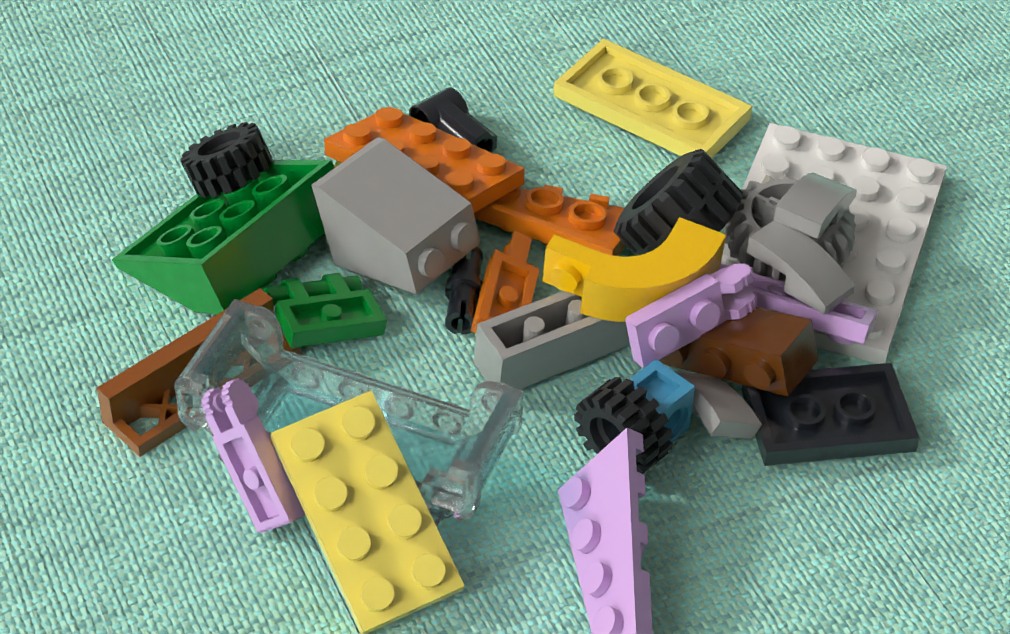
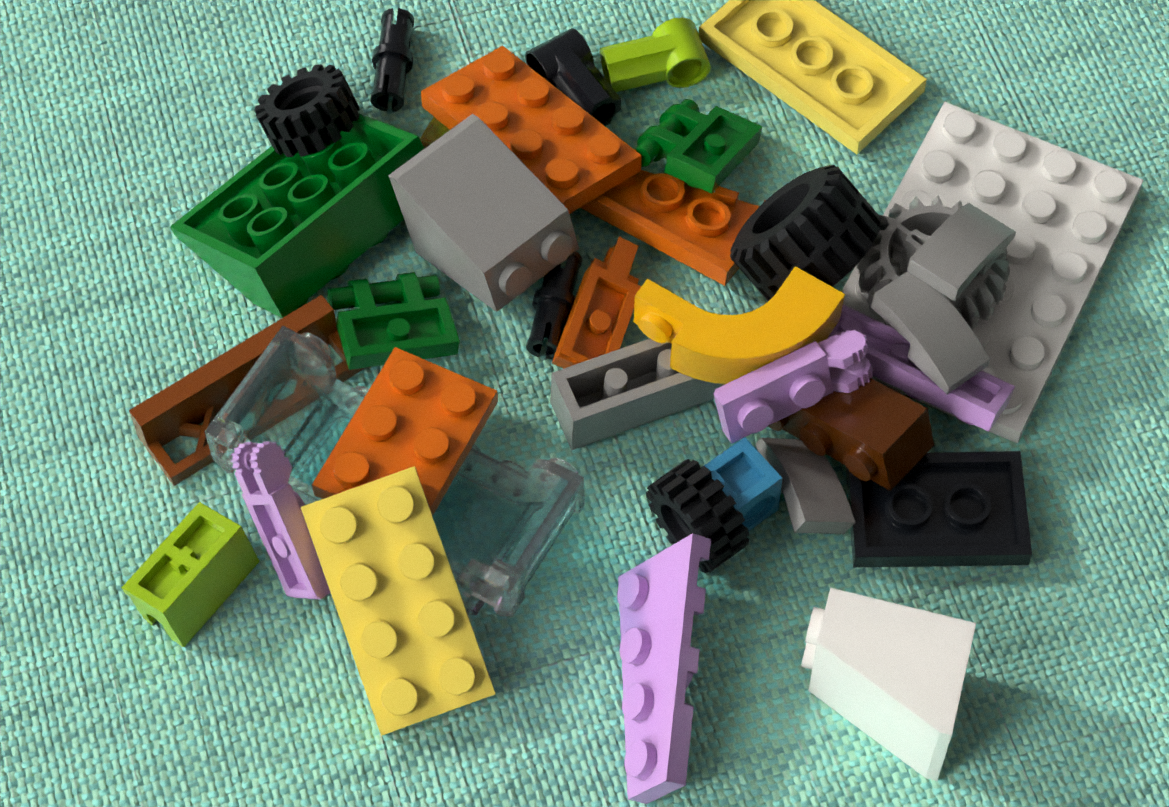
camera: 10 degrees right, 15 degrees up
(169, 515) = (192, 573): none -> lime hinge
(293, 124) = (392, 60): none -> black pin
(354, 361) = (406, 420): none -> orange plate
(531, 103) = (669, 55): none -> lime piece
(570, 165) = (711, 145): none -> green plate
(819, 532) = (890, 672): none -> white slope

